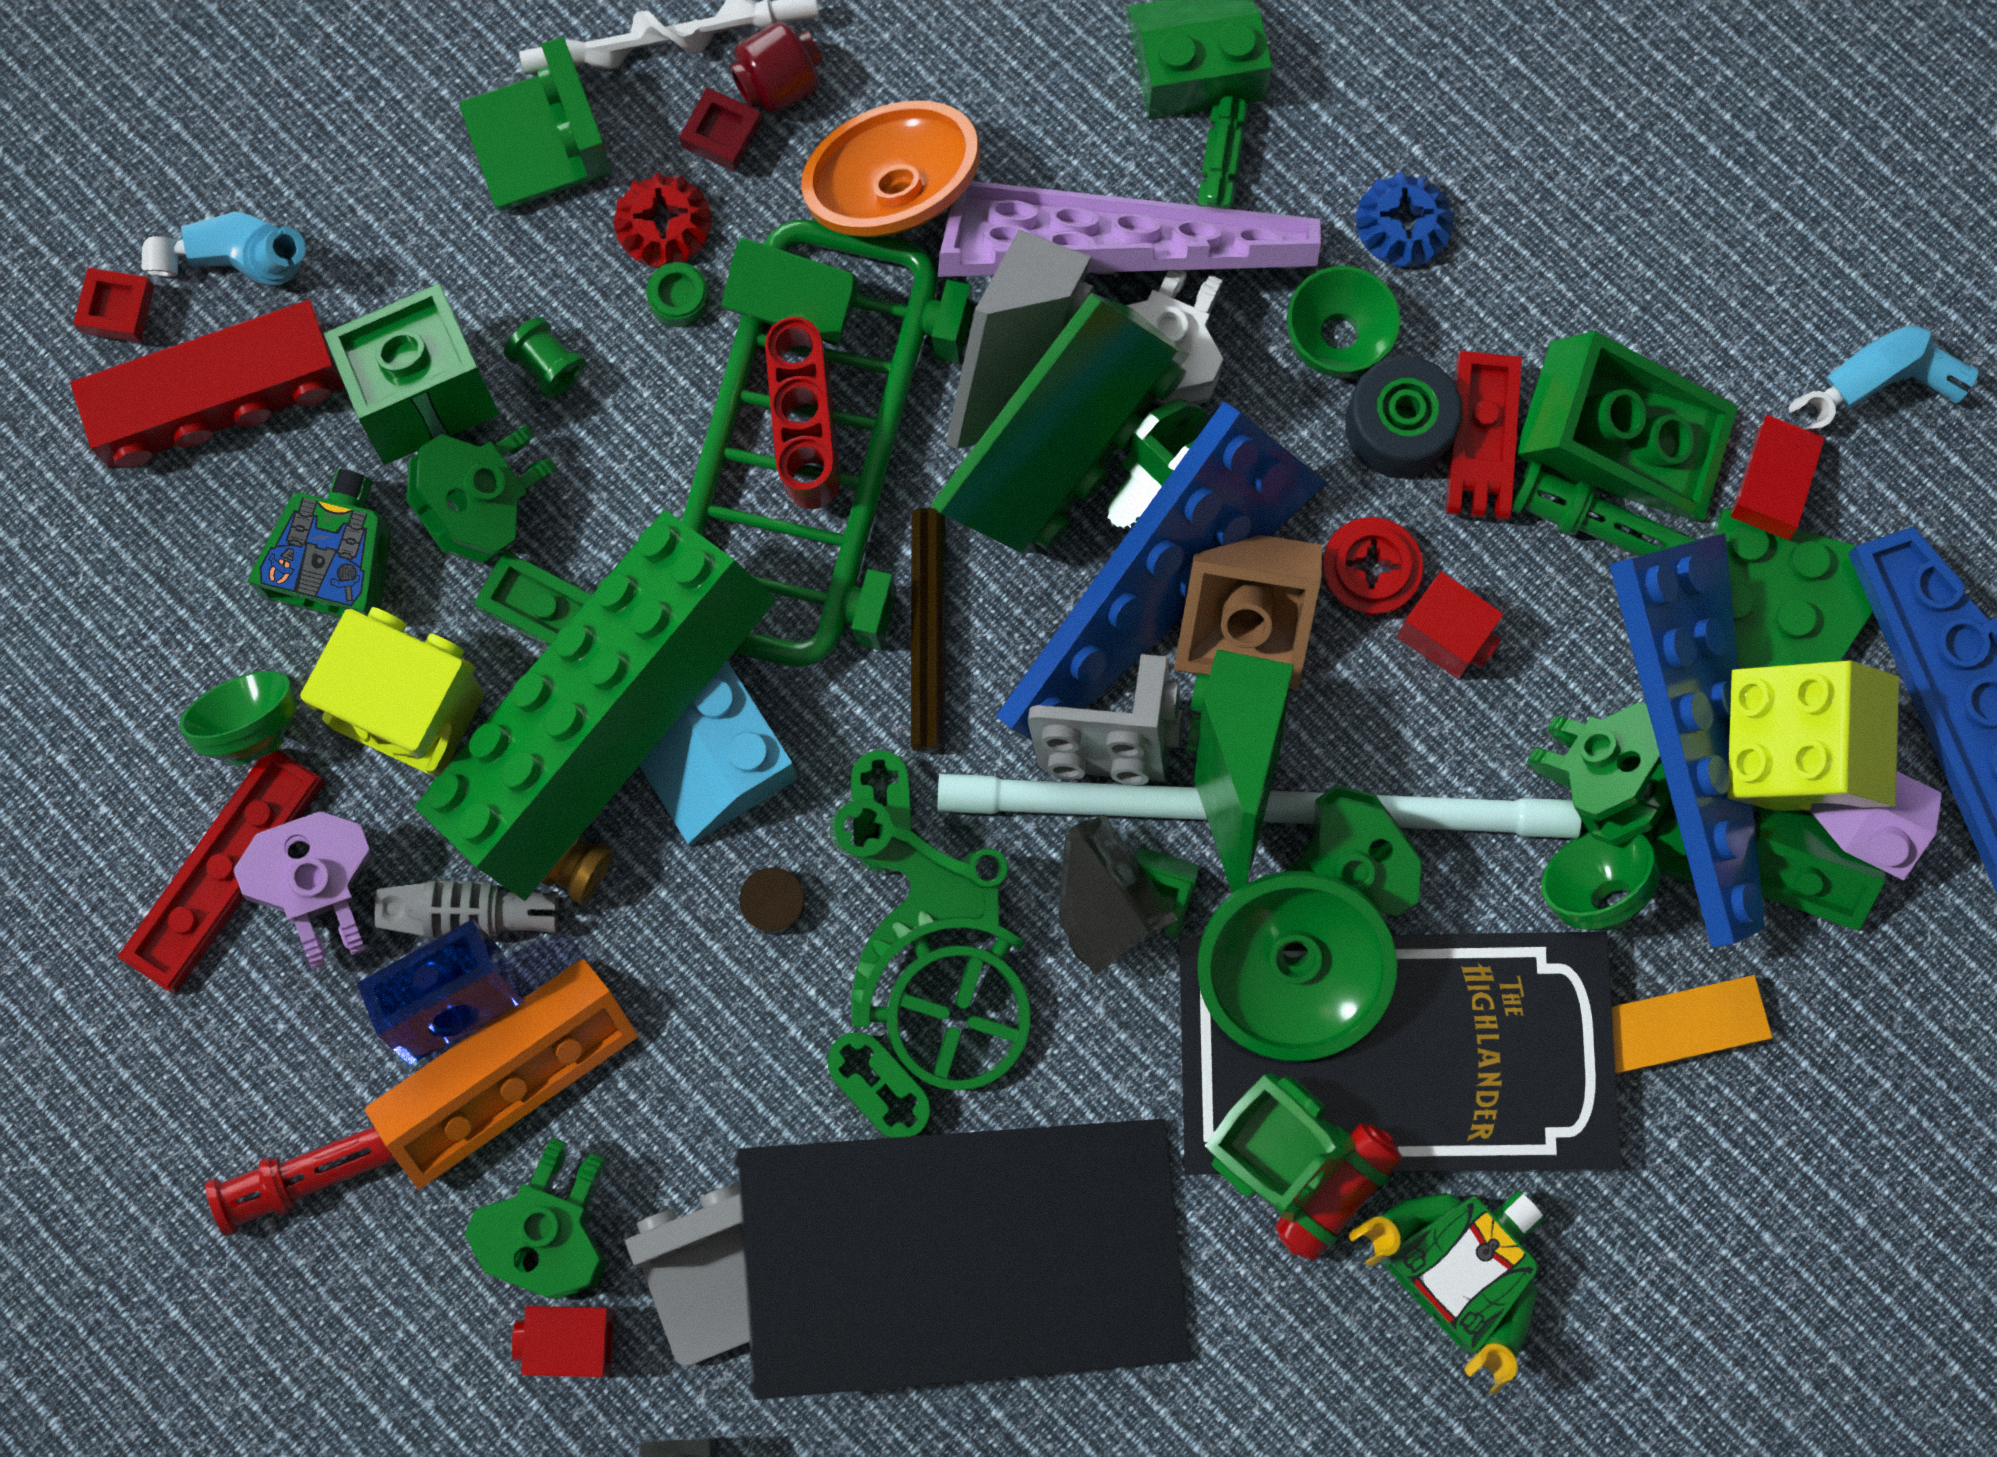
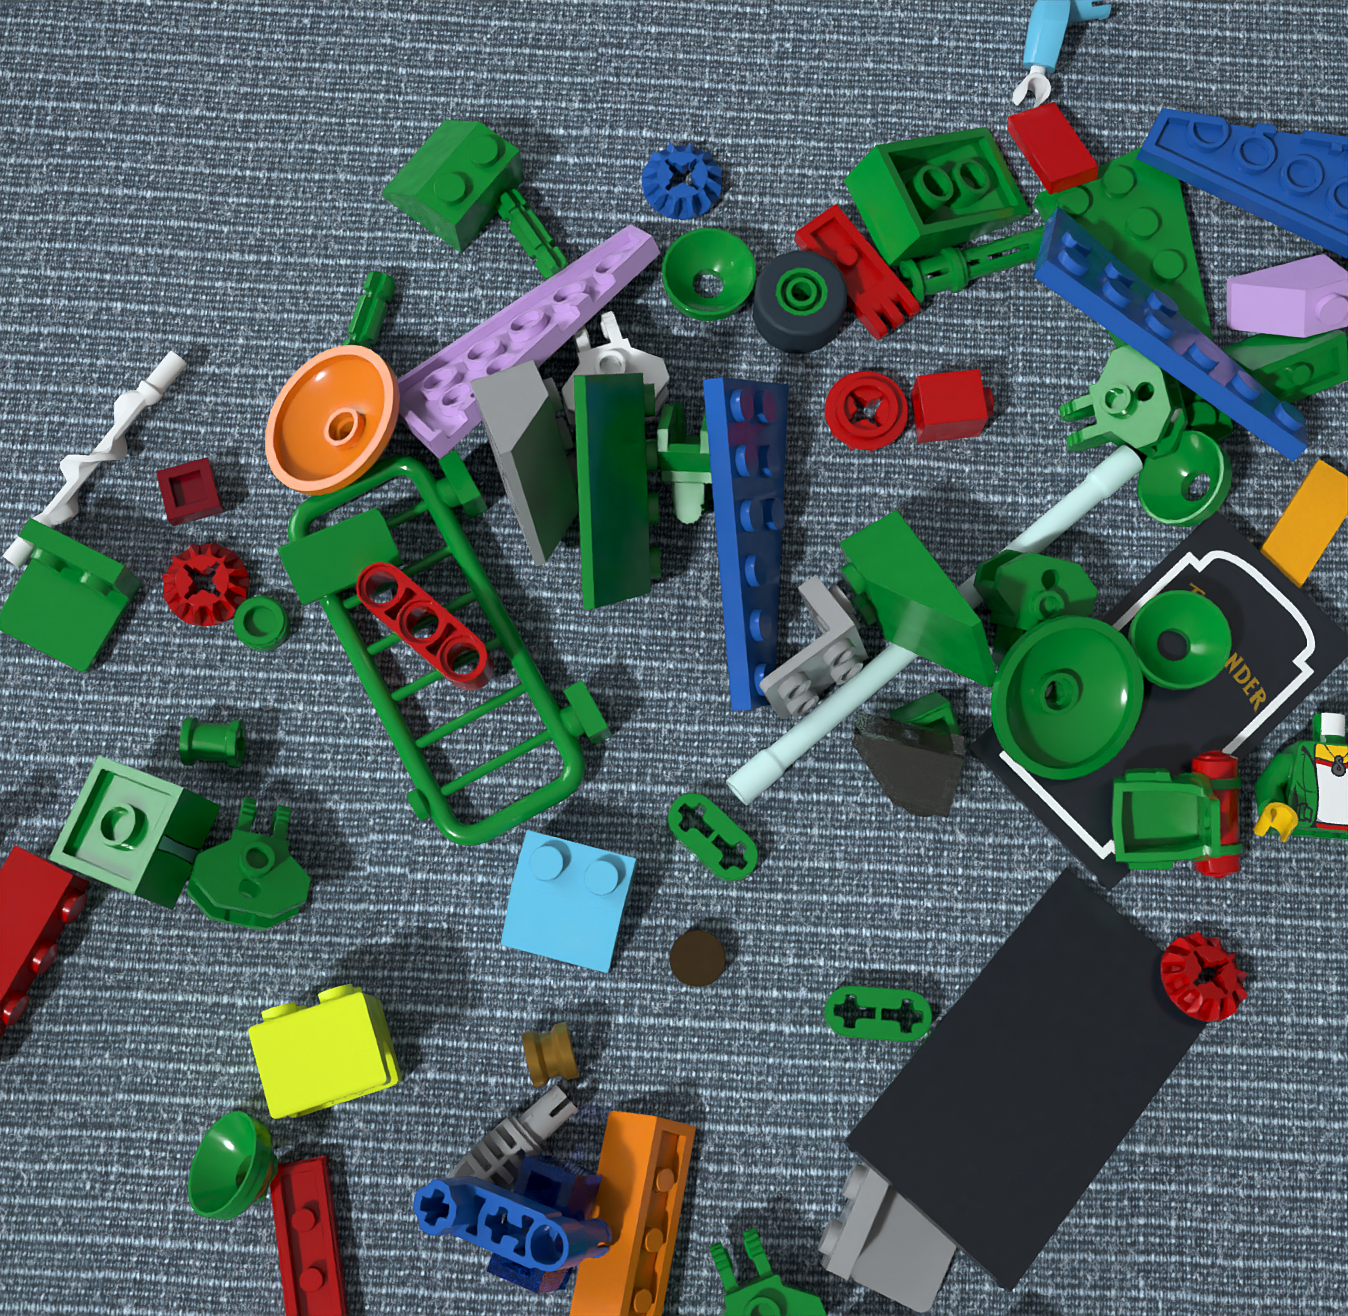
camera: 45 degrees left, 0 degrees up
(311, 883) = (389, 1234): lavender hinge -> none
(326, 551) = (187, 1002): torso -> none
(396, 925) = (474, 1212): none -> blue beam
(529, 599) = (369, 906): green plate -> none
(594, 704) = (472, 941): green brick -> none
(776, 67) = (190, 420): dark red head -> none
(927, 630) = (631, 696): dark brown axle -> none
(940, 897) = (807, 859): green piece -> none
(1016, 104) = (371, 310): none -> green axle
(1171, 1339) = (1181, 967): none -> red gear
(1251, 602) = (822, 498): medium nougat slope -> none
(1474, 985) = (1199, 624): none -> green piece
(1813, 736) = (1236, 279): neon yellow piece -> none

